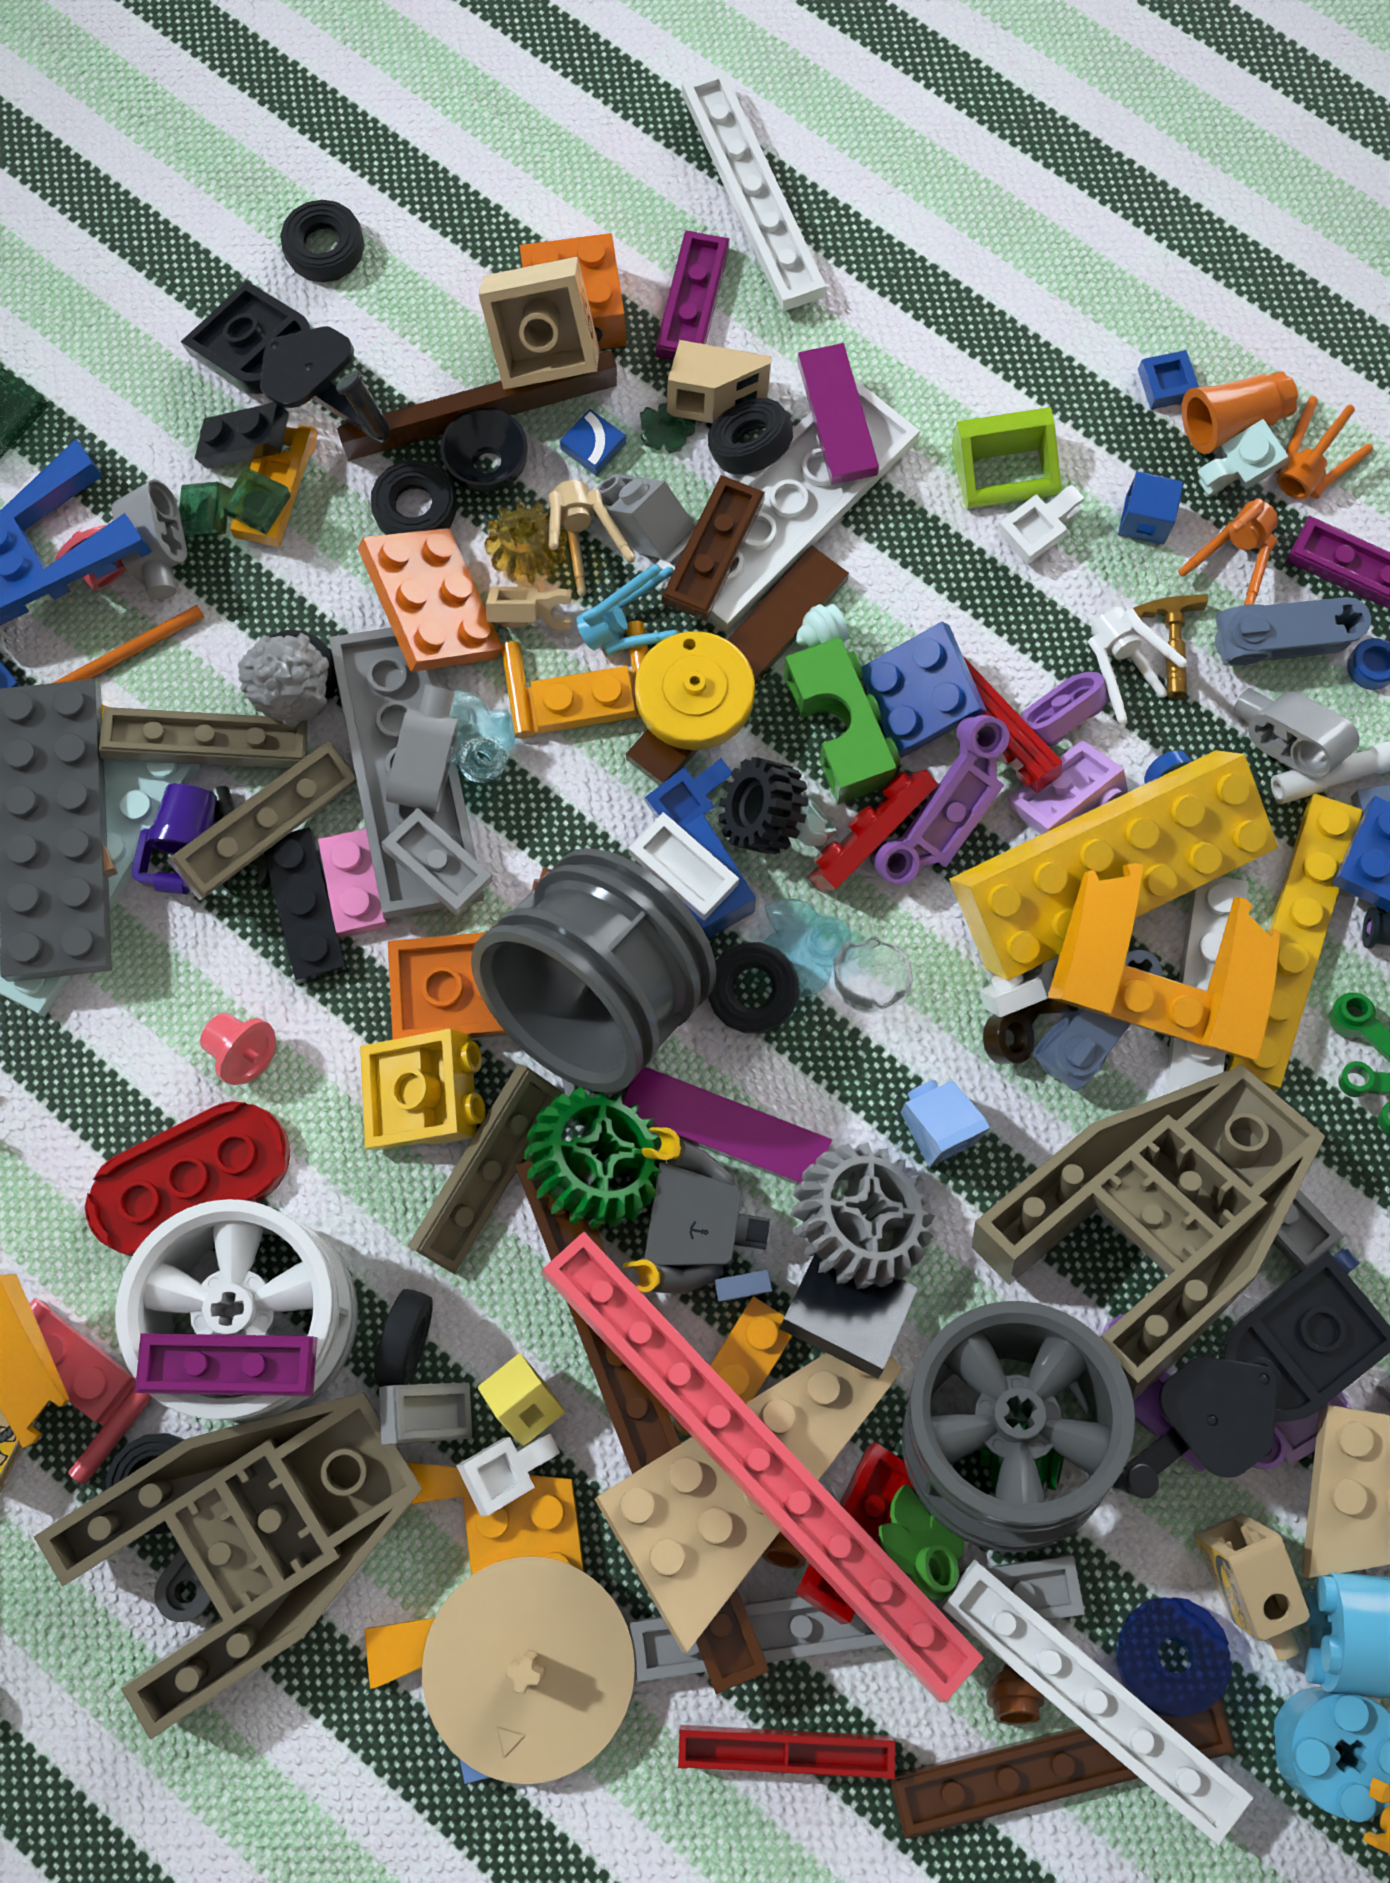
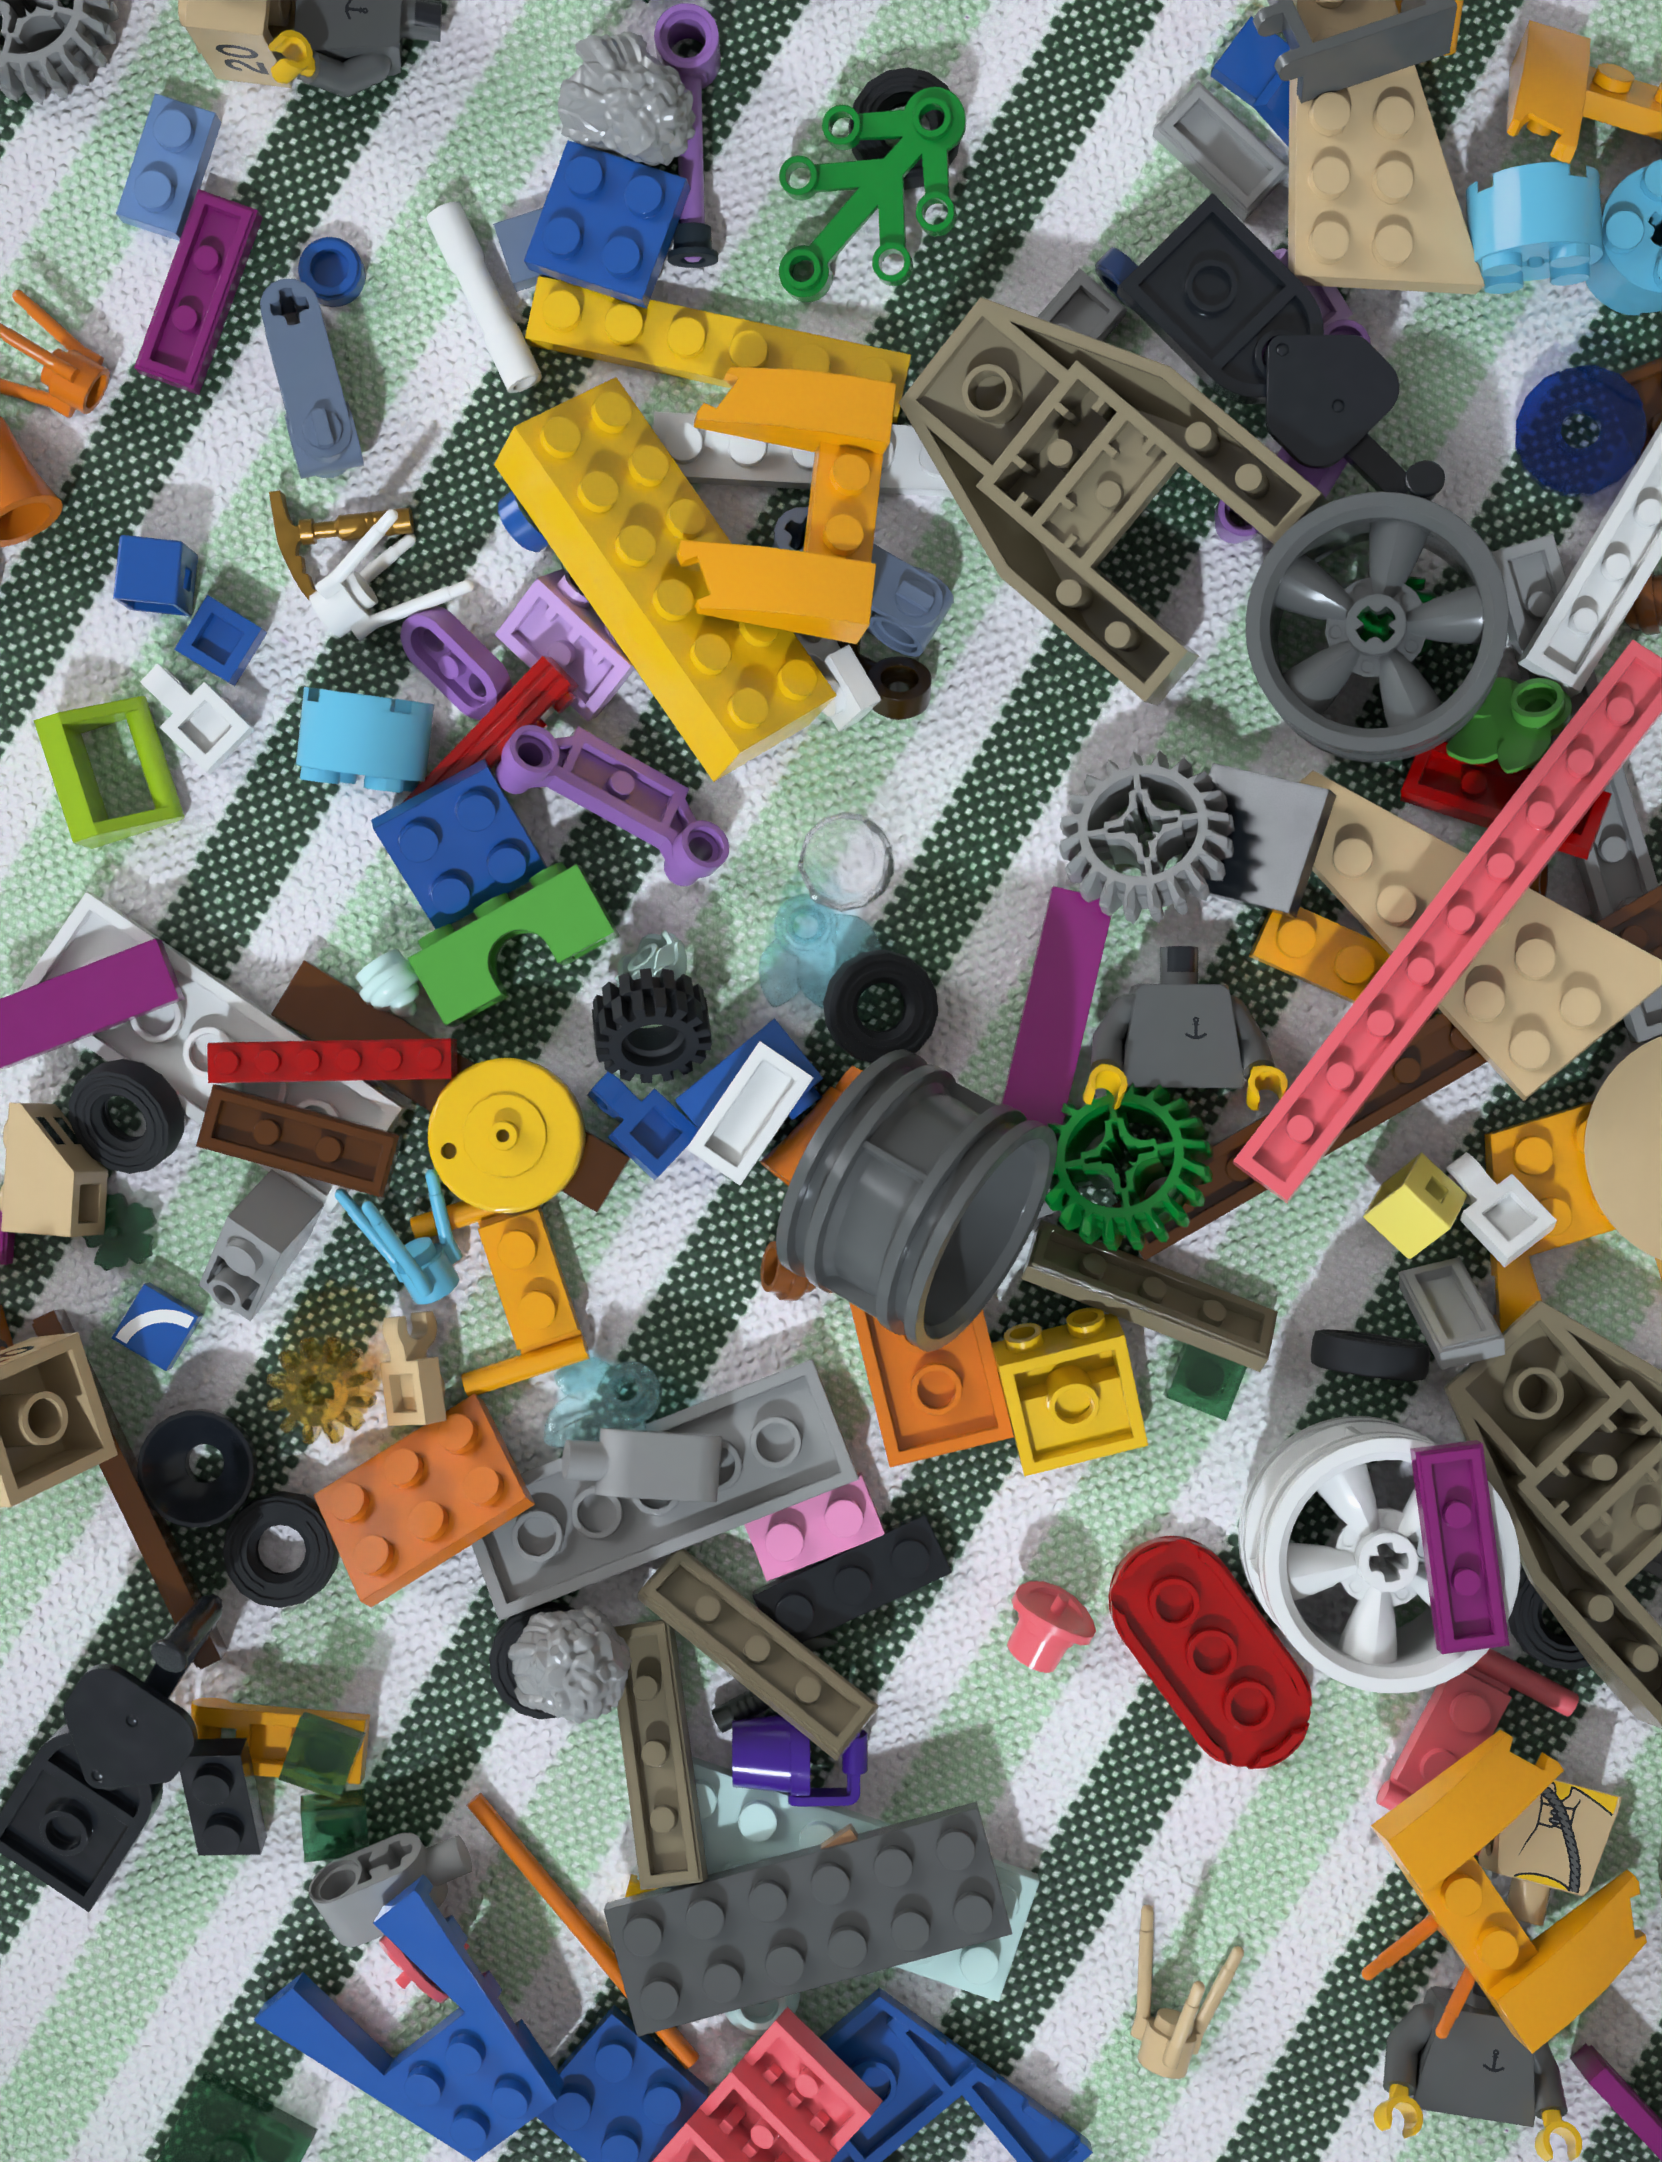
camera: 100 degrees left, 15 degrees up
(406, 1202) = (1204, 1381): none -> clear green plate
(437, 861) = (786, 1423): light grey plate -> none
(574, 508) = (265, 1334): tan plant -> none
(743, 1286) = (1245, 968): sand blue tile -> none
(769, 576) = (332, 1060): none -> red piece
(870, 829) = (656, 886): red plate -> none
(942, 1121) = (1018, 754): light blue slope -> none
(1011, 629) = (364, 736): none -> medium azure brick
(1097, 547) = (220, 640): none -> blue plate
(1247, 457) = (63, 452): light aqua plate -> none
(1247, 531) = (171, 447): orange plant -> none
(1255, 1582) = (1490, 346): tan torso -> none
(1298, 731) = (449, 362): light grey piece -> none

